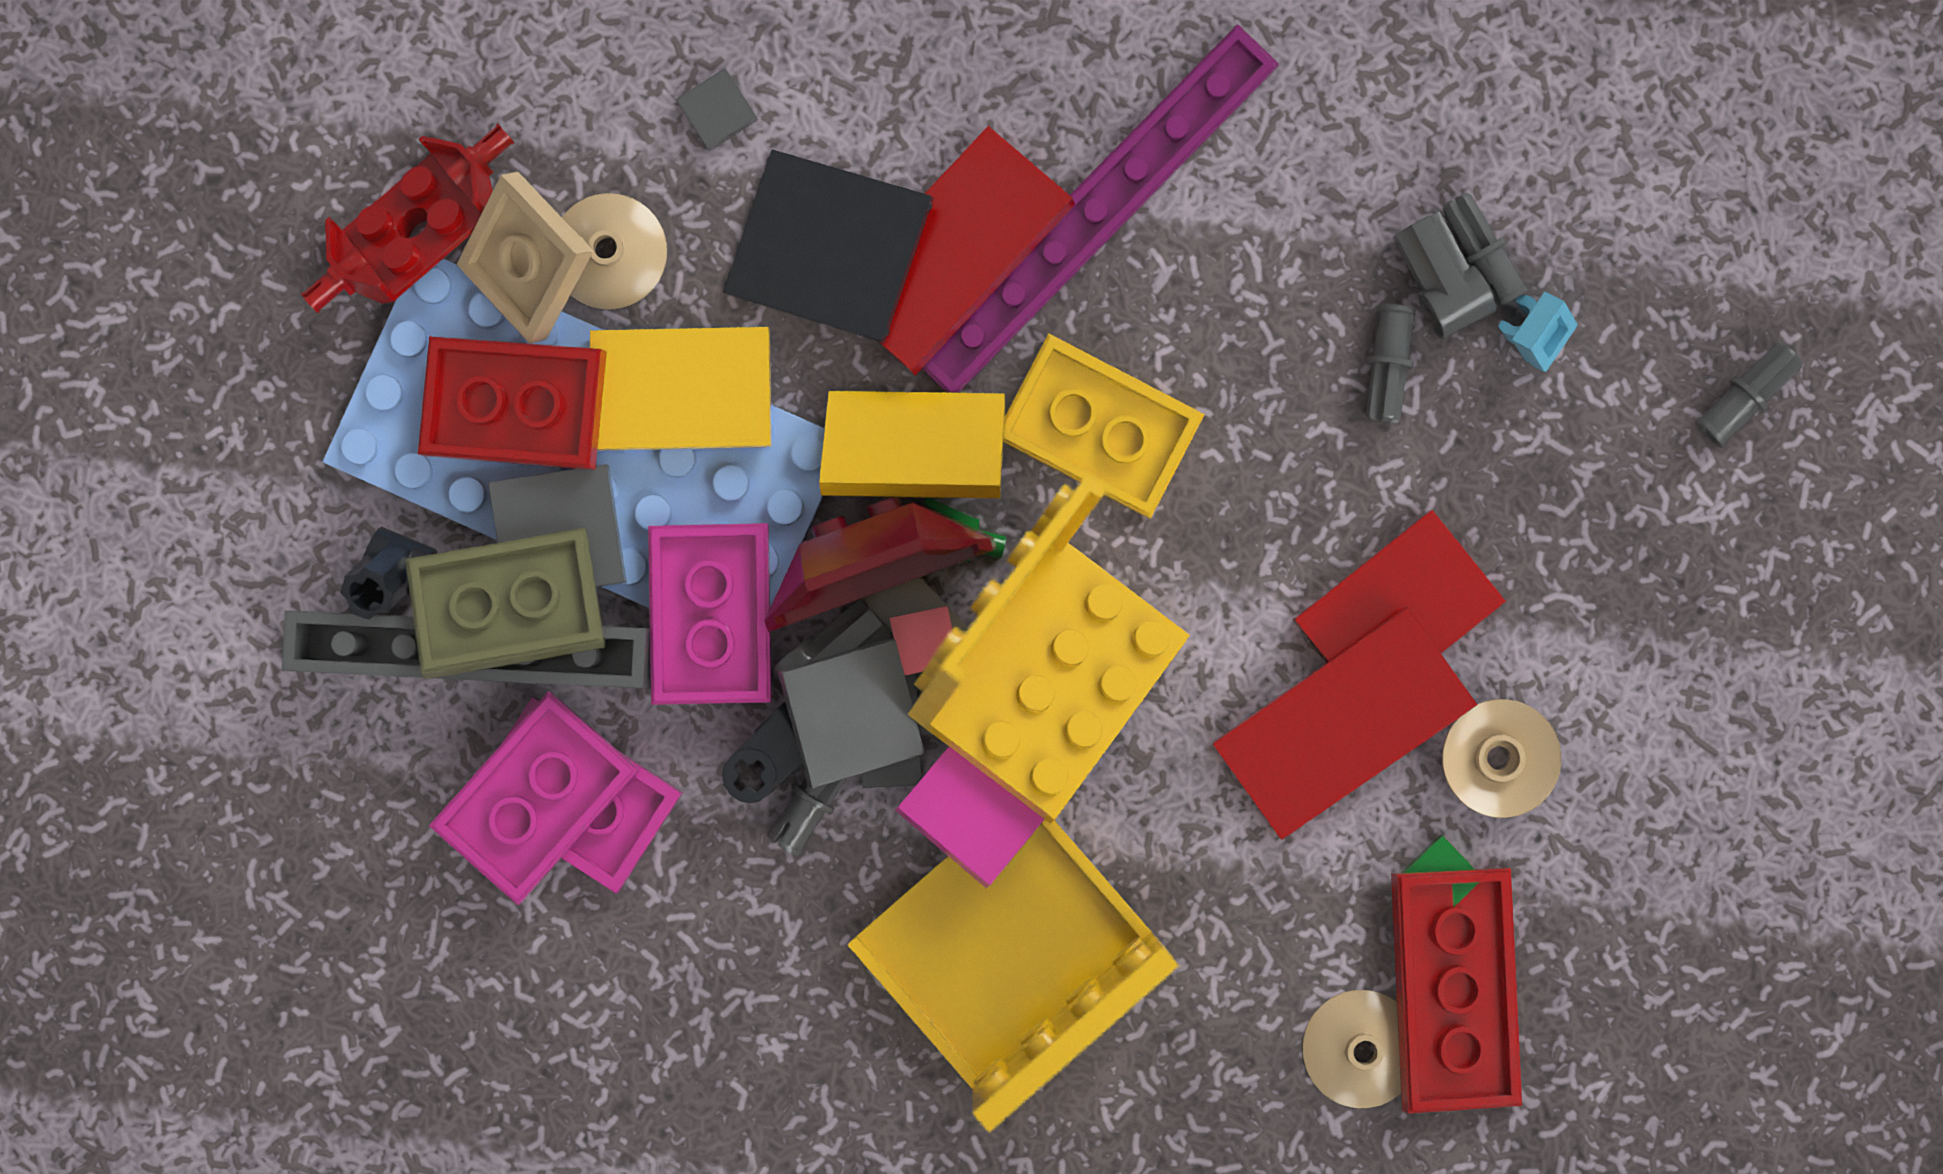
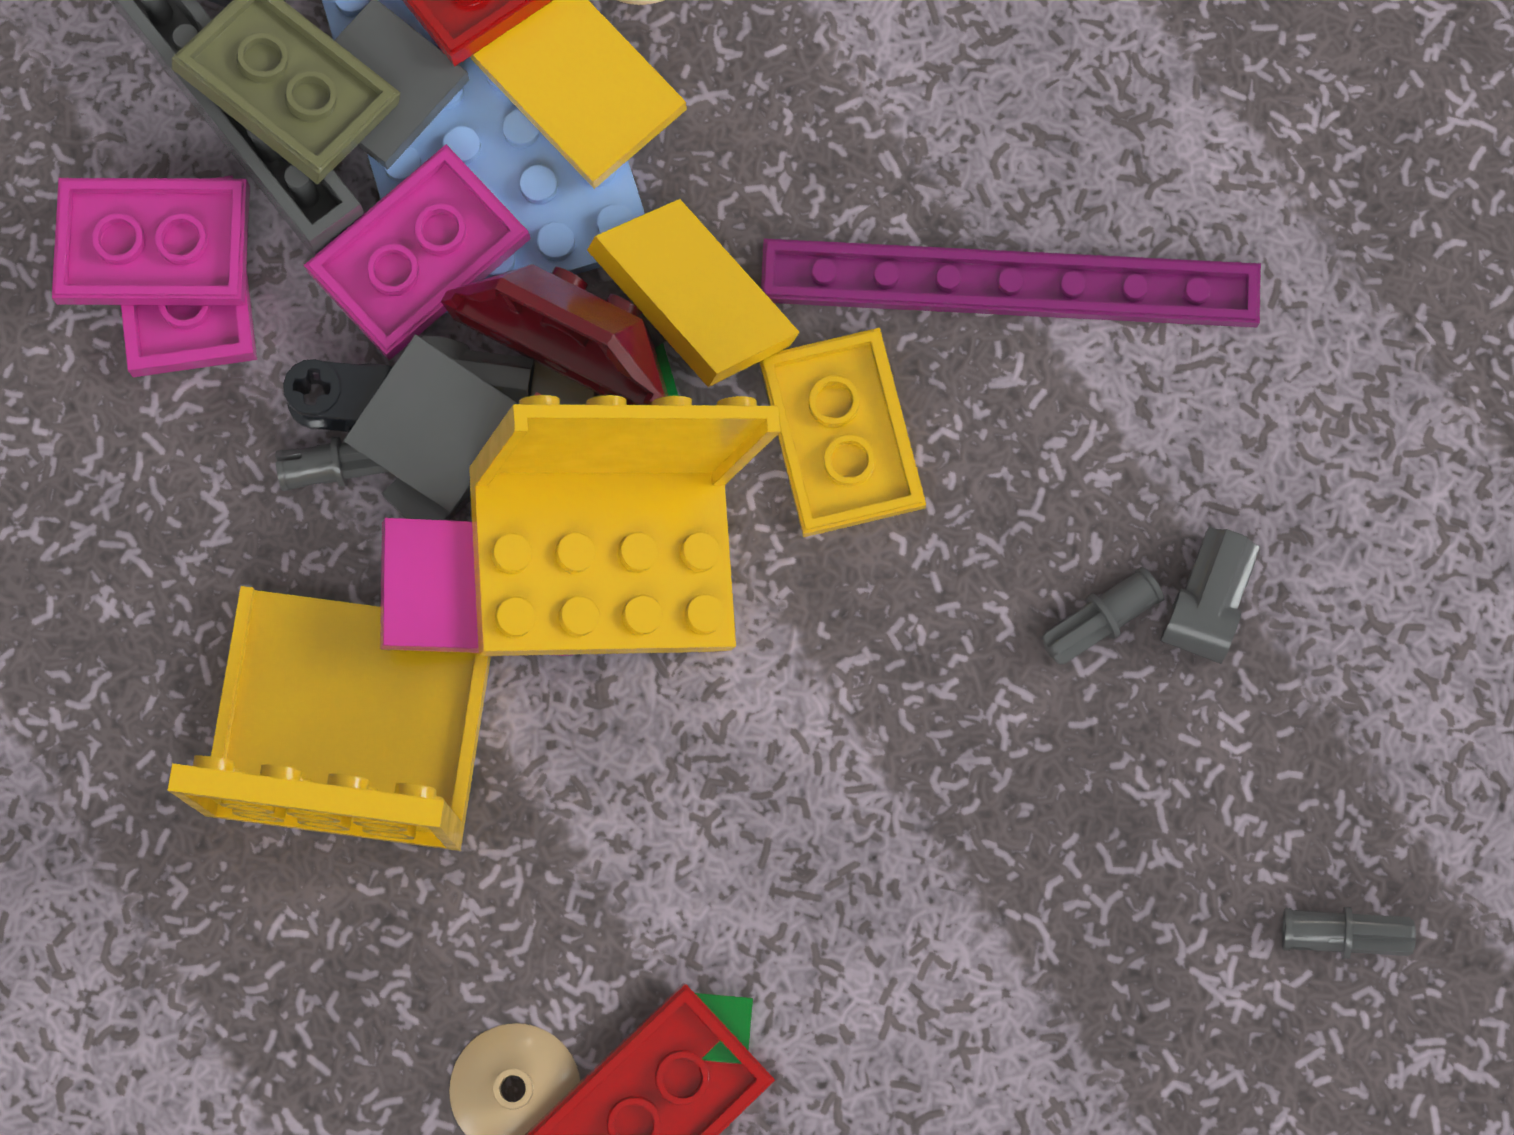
camera: 50 degrees right, 10 degrees down
(828, 245) = (794, 101): black piece -> none
(980, 228) = (877, 197): red tile -> none
(1344, 723) = (774, 832): red tile -> none
(1415, 570) = (908, 800): red tile -> none
(1484, 249) = (1262, 612): dark grey axle -> none
(1531, 763) = (882, 960): tan dish -> none
(1543, 330) = (1241, 714): medium azure tile -> none

